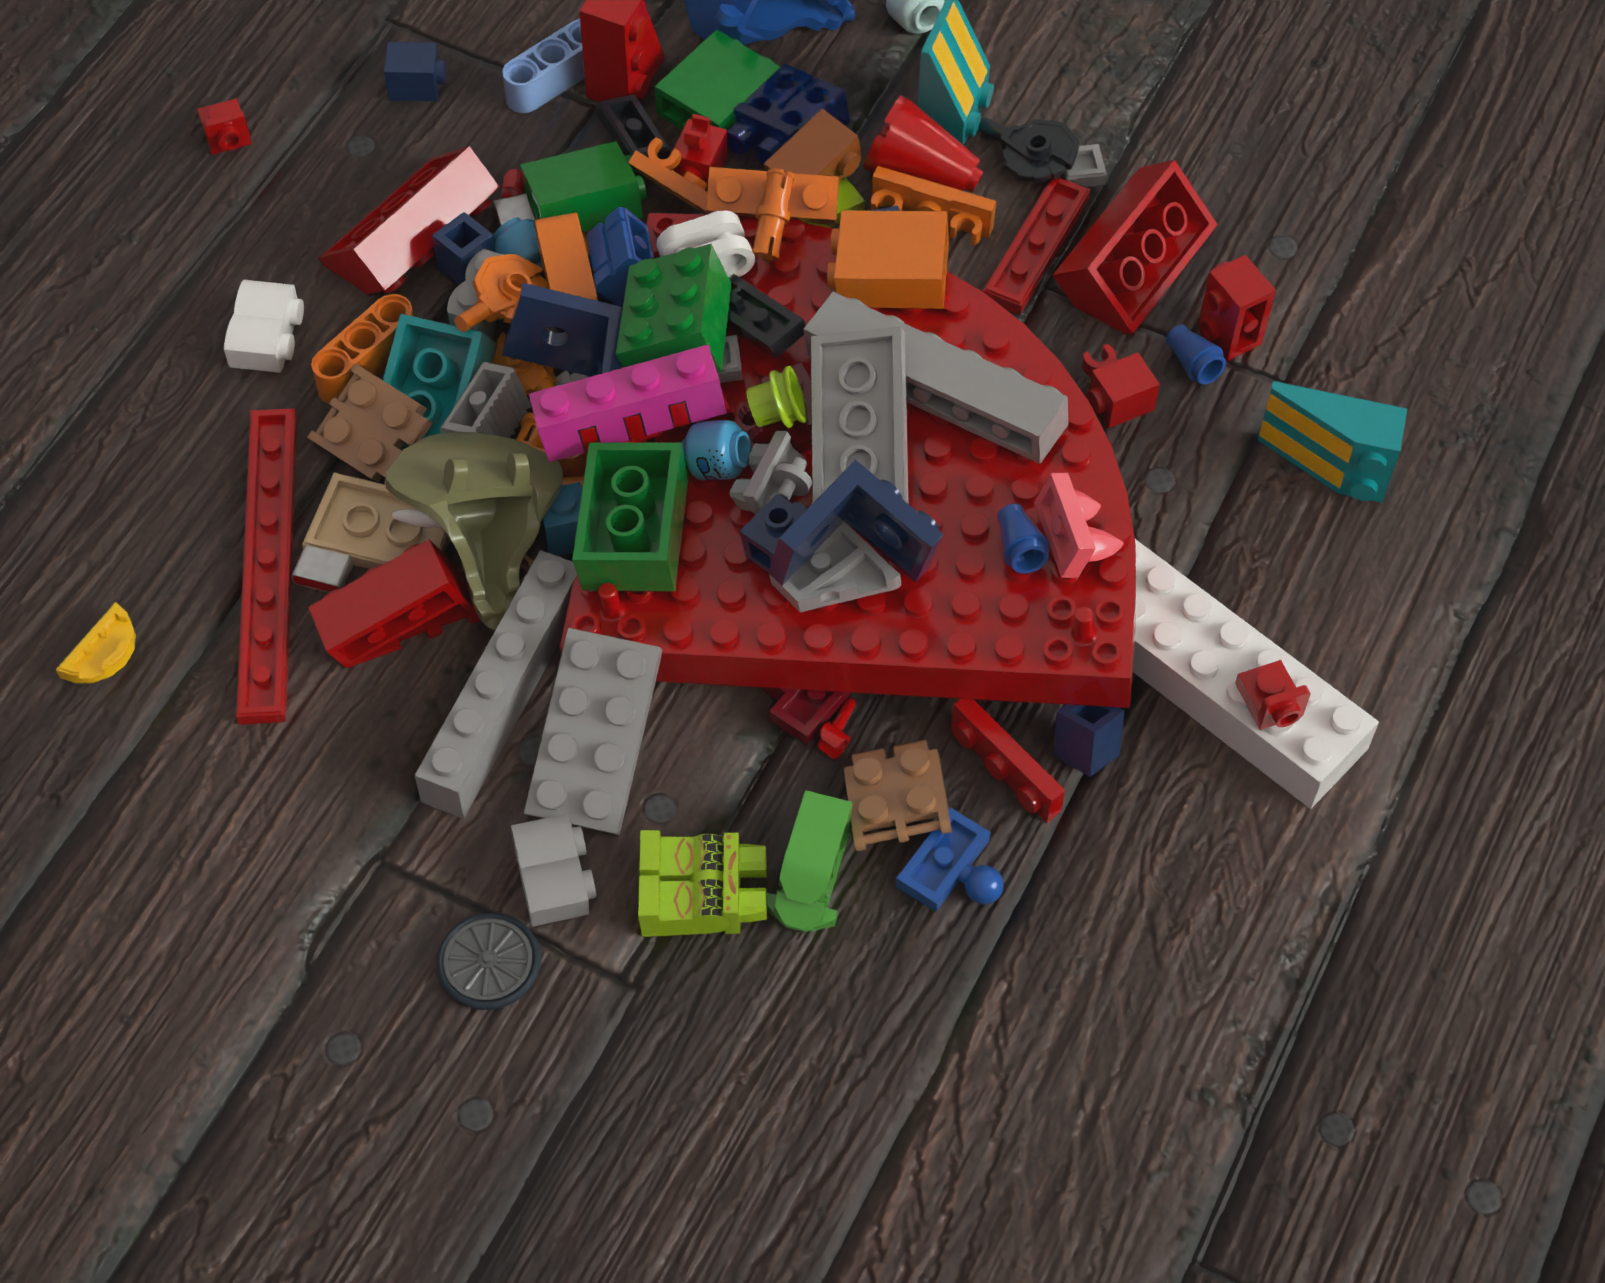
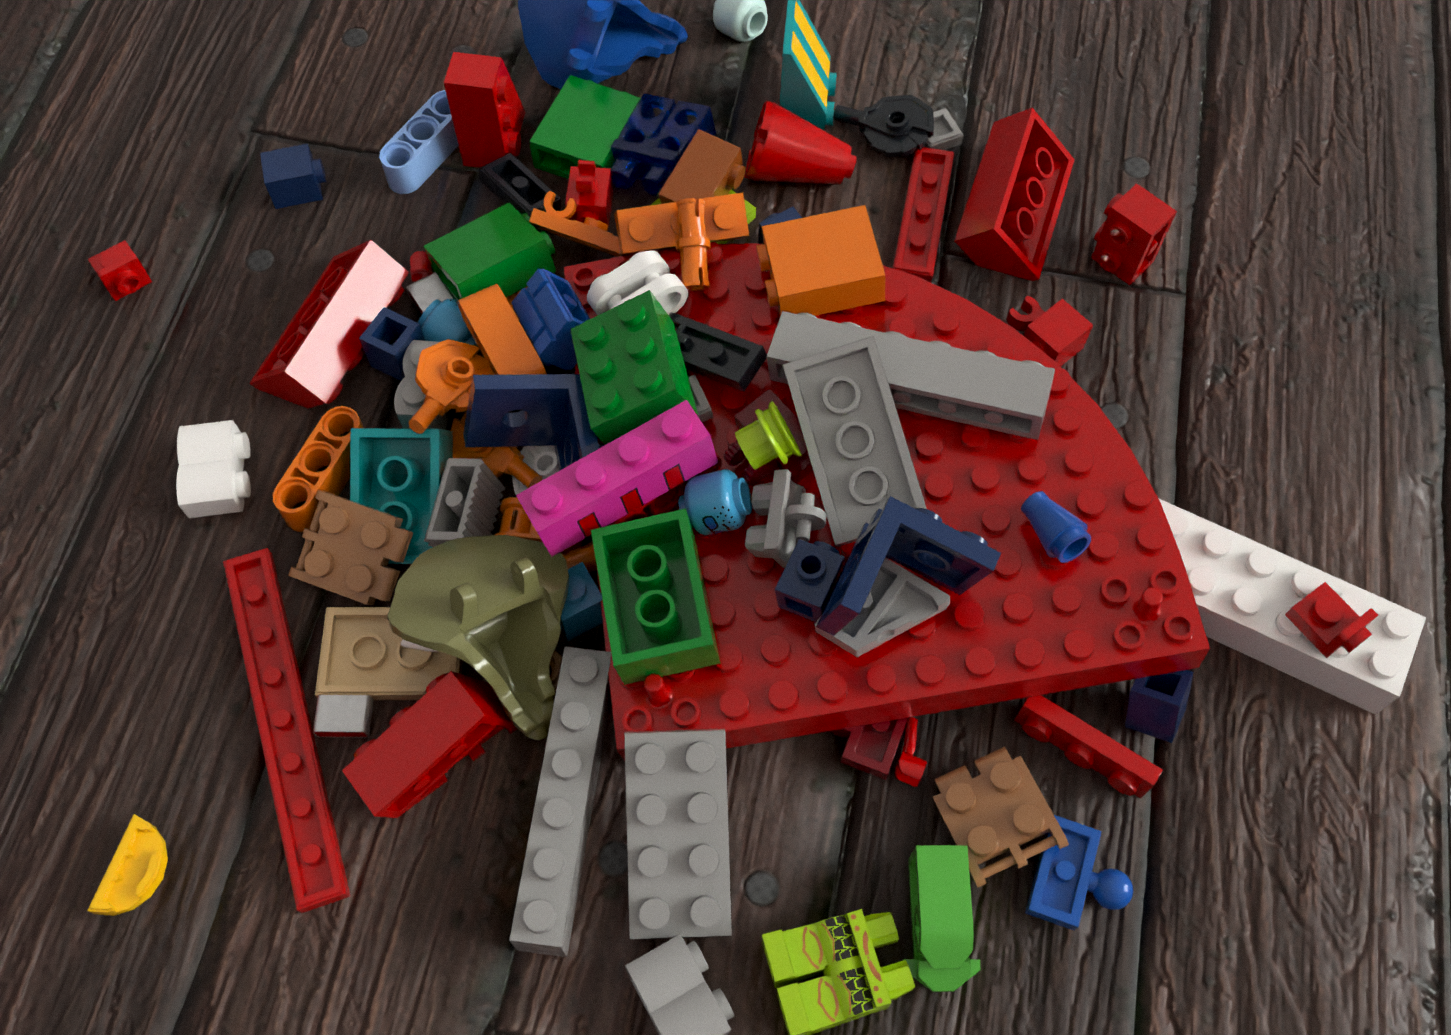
camera: 15 degrees left, 5 degrees up
(964, 210) = (817, 194): orange plate -> none
(1064, 522) = (1092, 497): coral tile -> none
(1198, 356) = (1107, 287): blue cone -> none
(1335, 438) = (1272, 340): teal slope -> none

